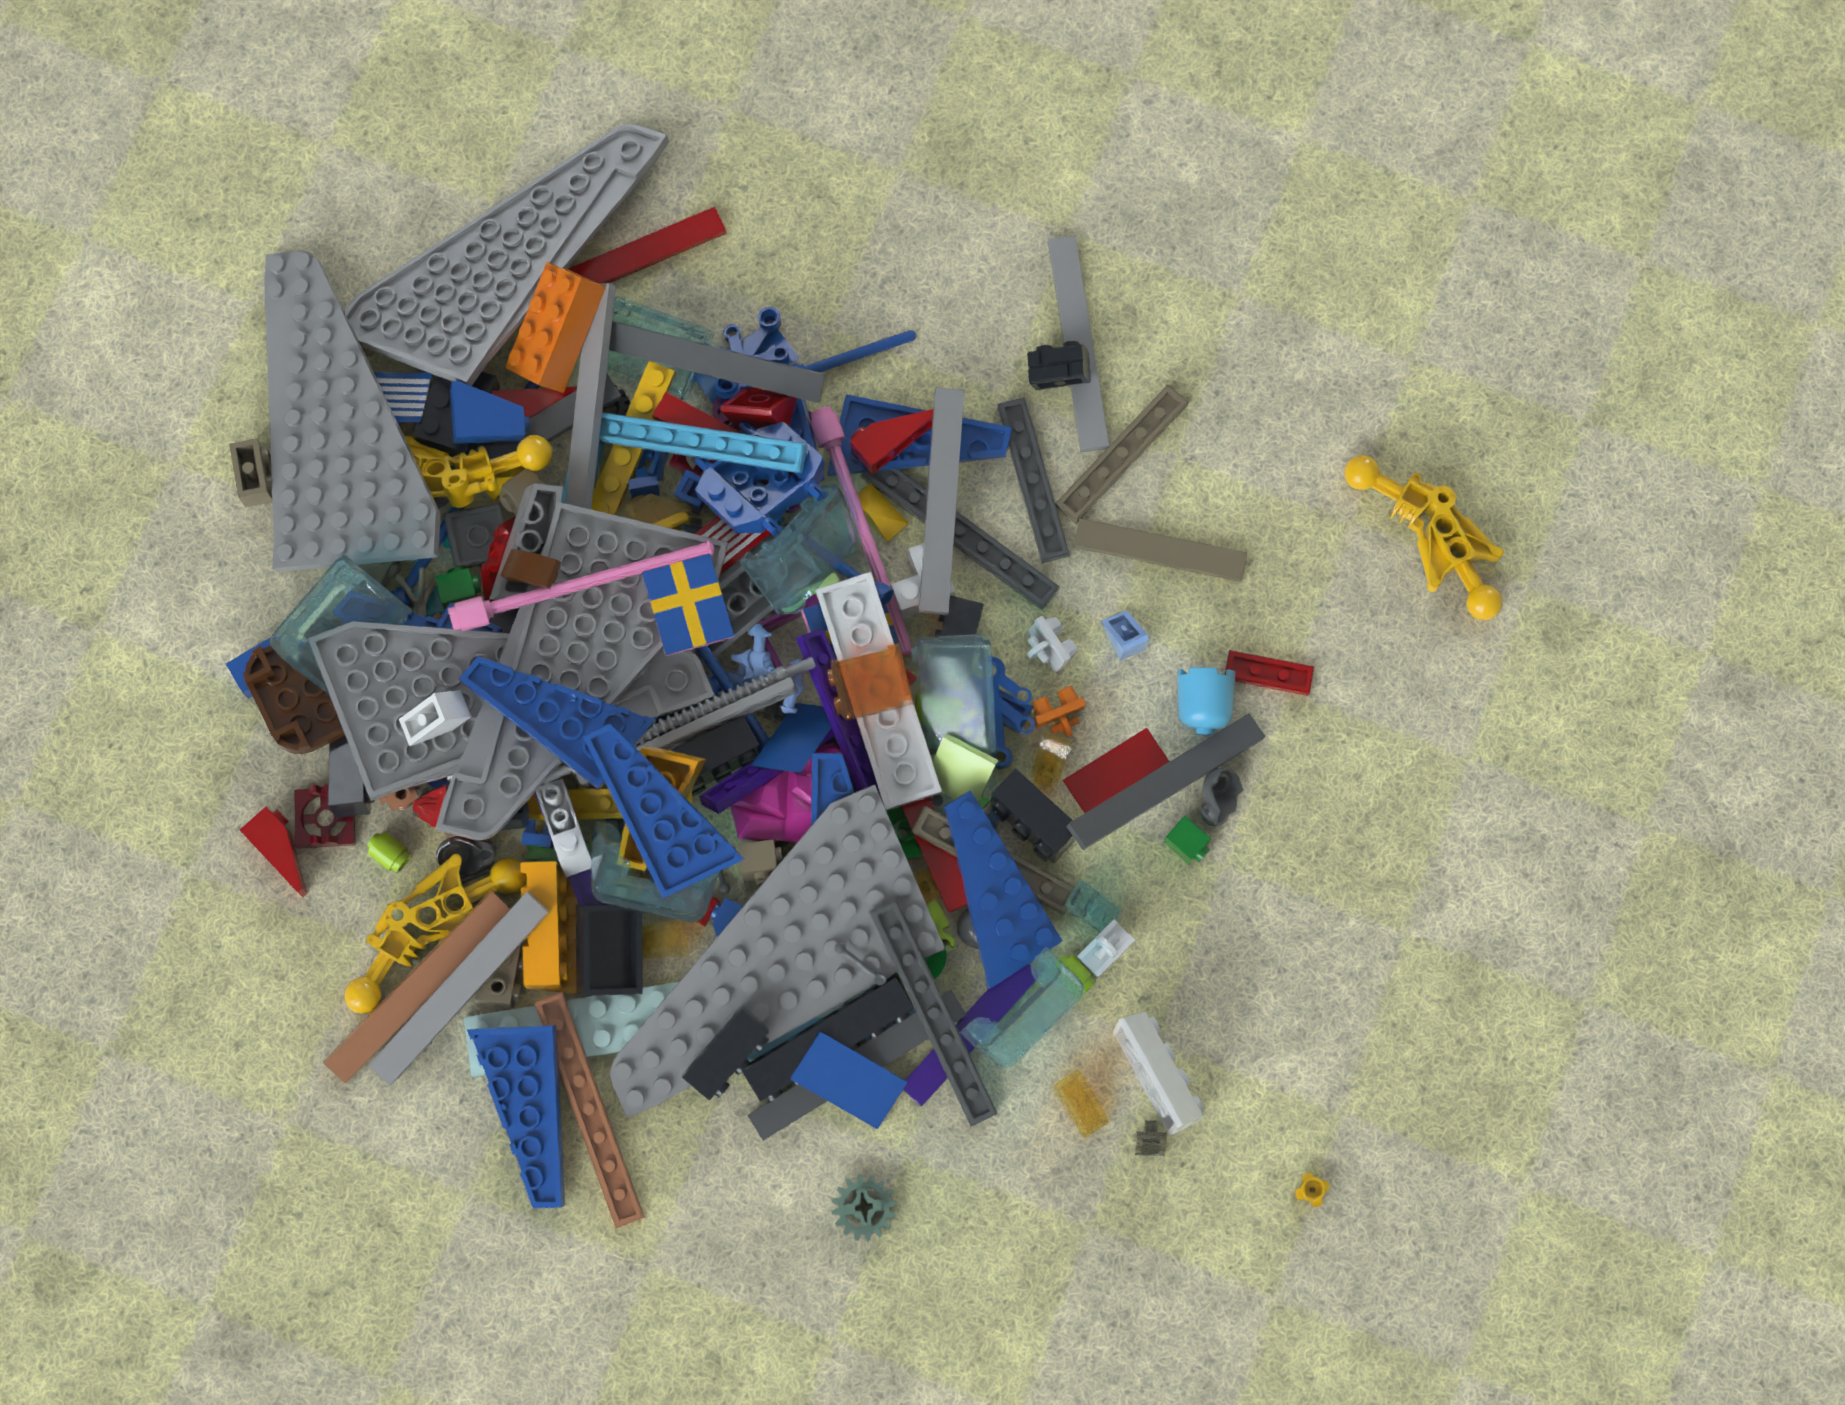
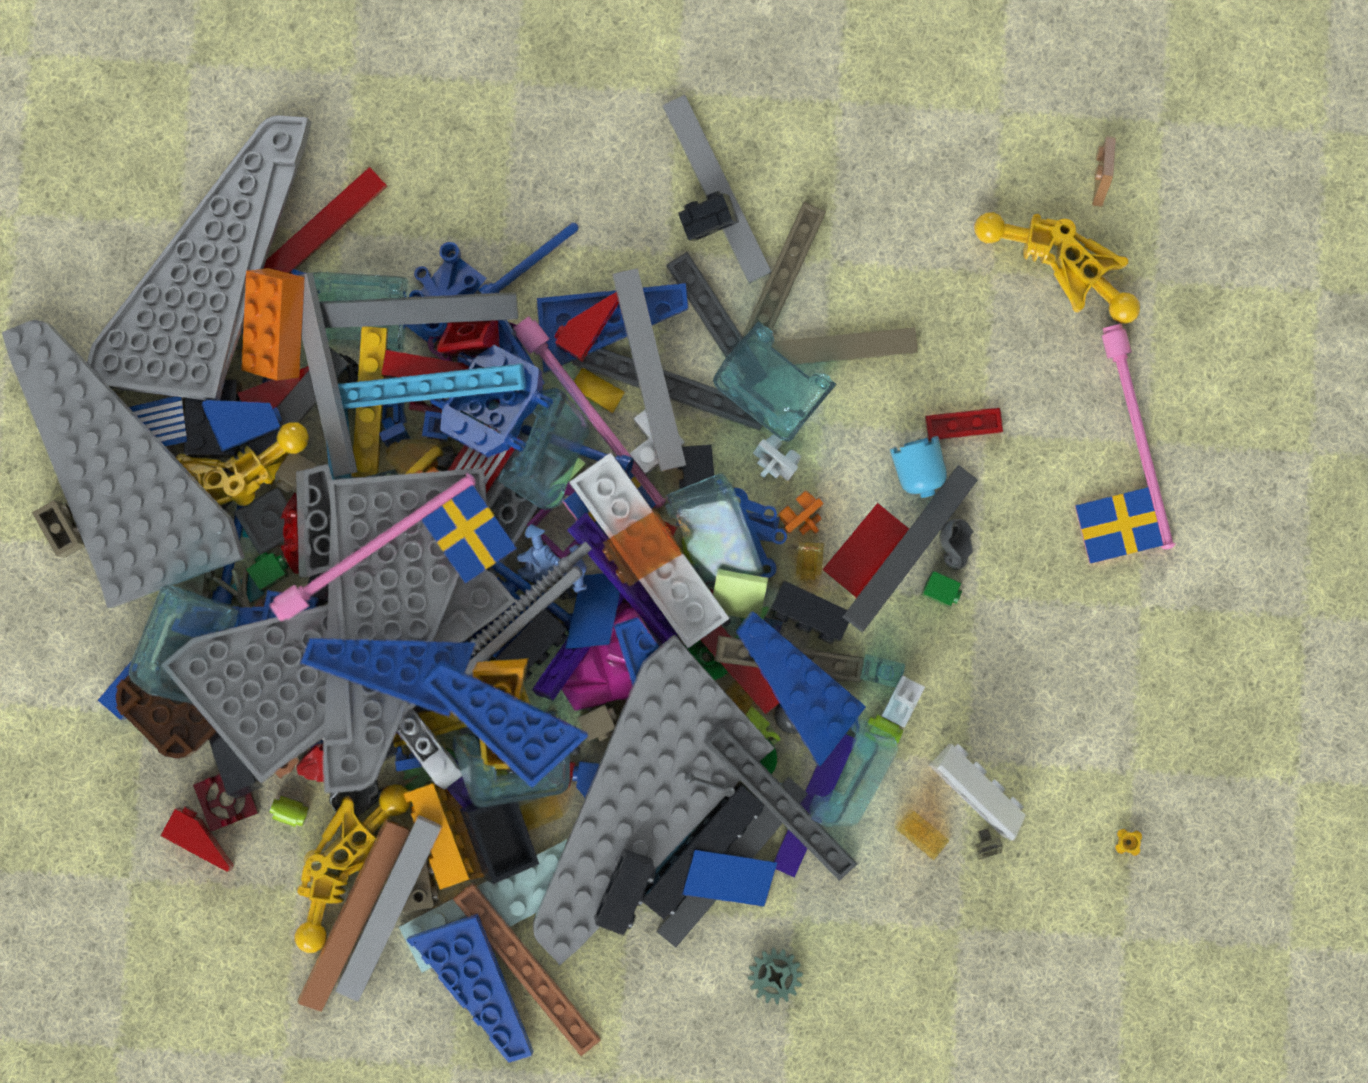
camera: 20 degrees left, 10 degrees up
(435, 716) = (291, 699): white slope -> none
(531, 568) = (327, 547): reddish brown slope -> none
(1067, 560) = (771, 385): none -> clear light blue windscreen
(1125, 634) = (835, 430): light blue slope -> none
(1428, 833) = (1135, 518): none -> flag
(1504, 451) = (1104, 170): none -> medium nougat wing

